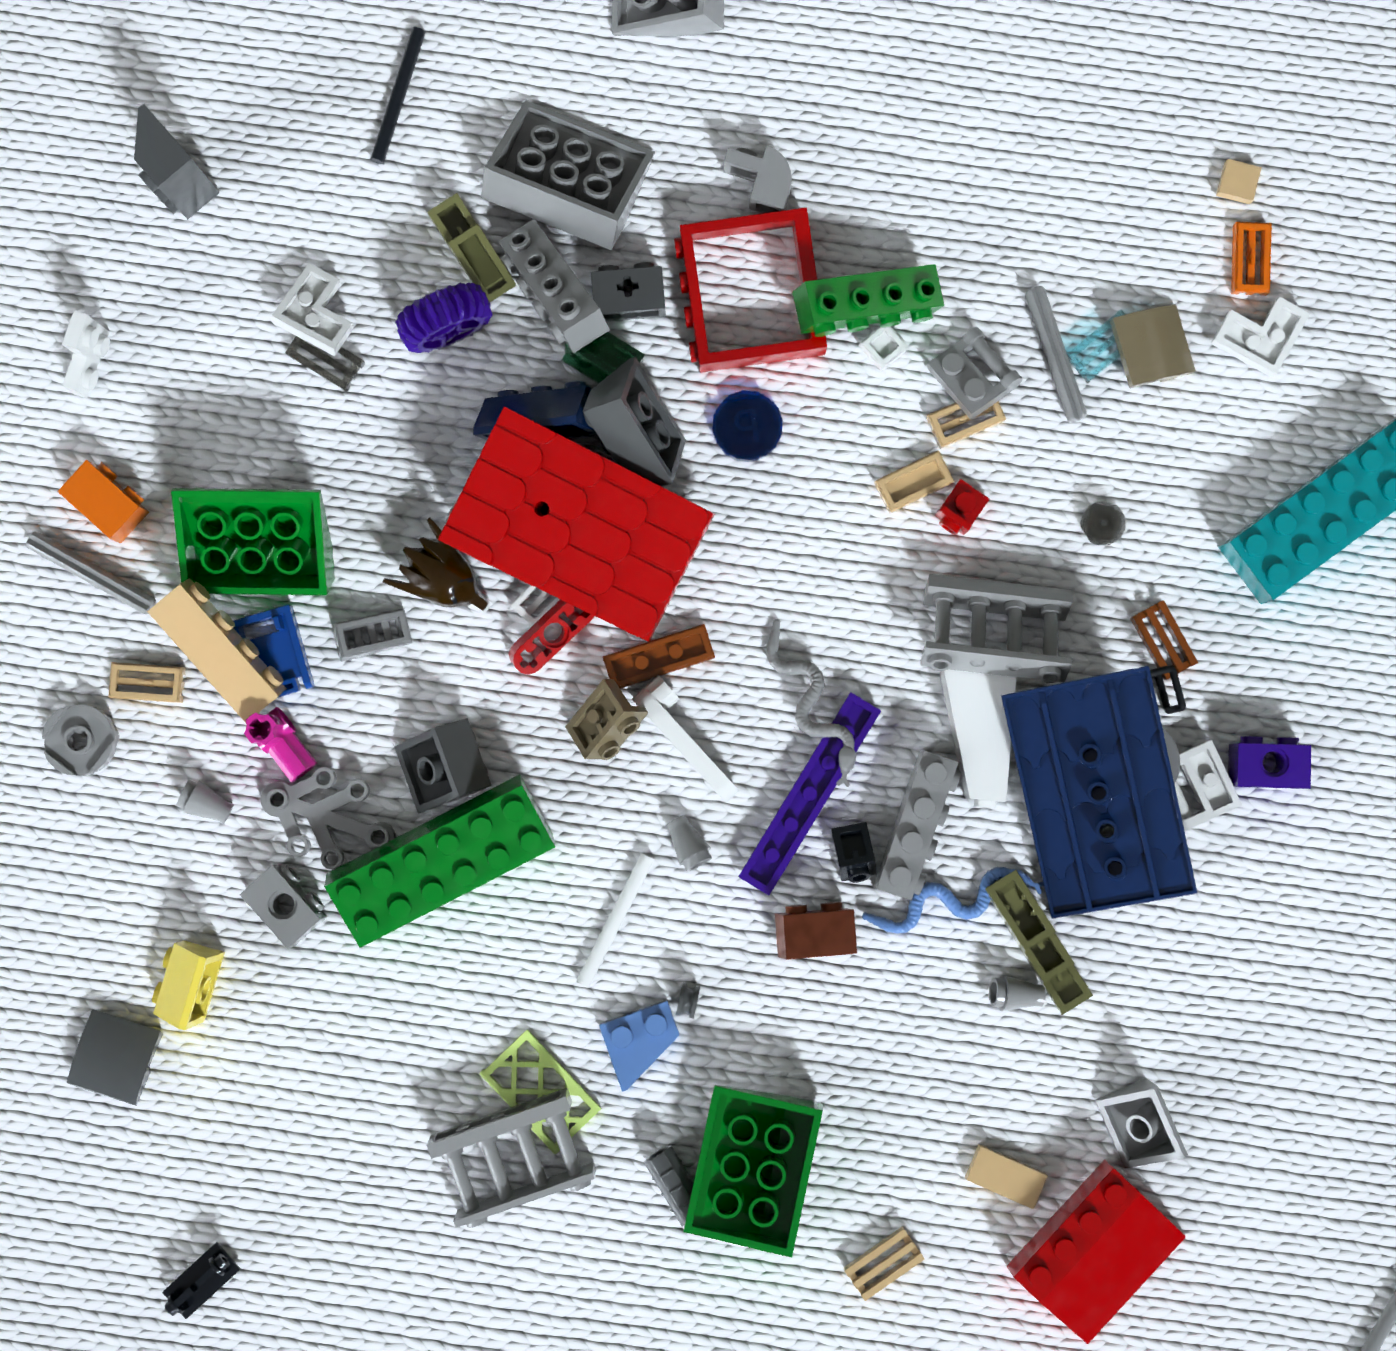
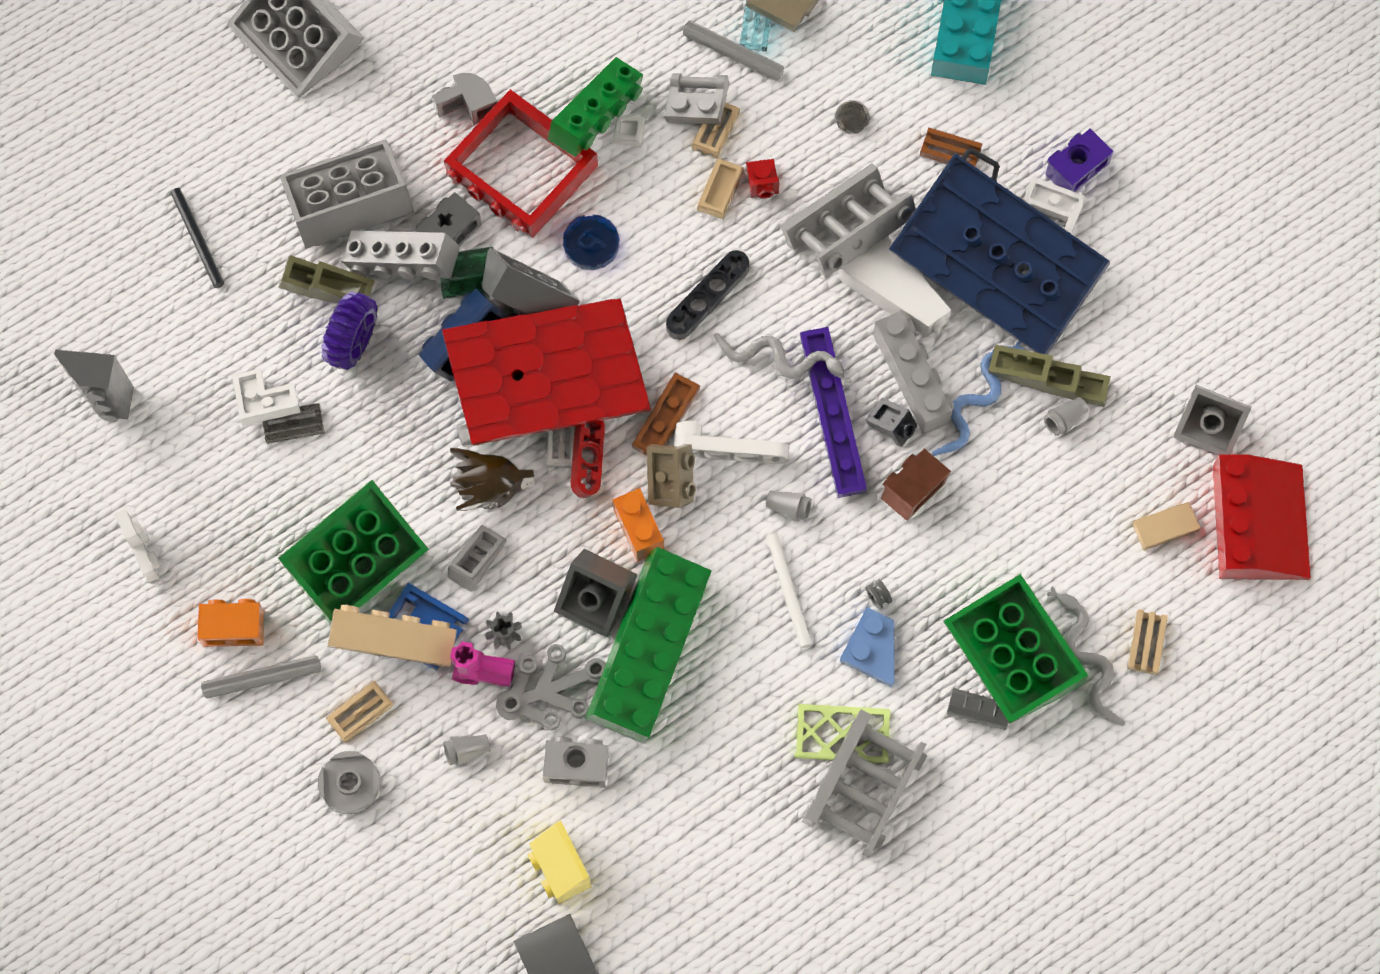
camera: 45 degrees left, 15 degrees down
(321, 731) = (511, 627): none -> dark grey gear
(535, 740) = (637, 524): none -> orange brick
(803, 570) = (704, 292): none -> black beam
(828, 1194) = (1071, 604): none -> light grey animal

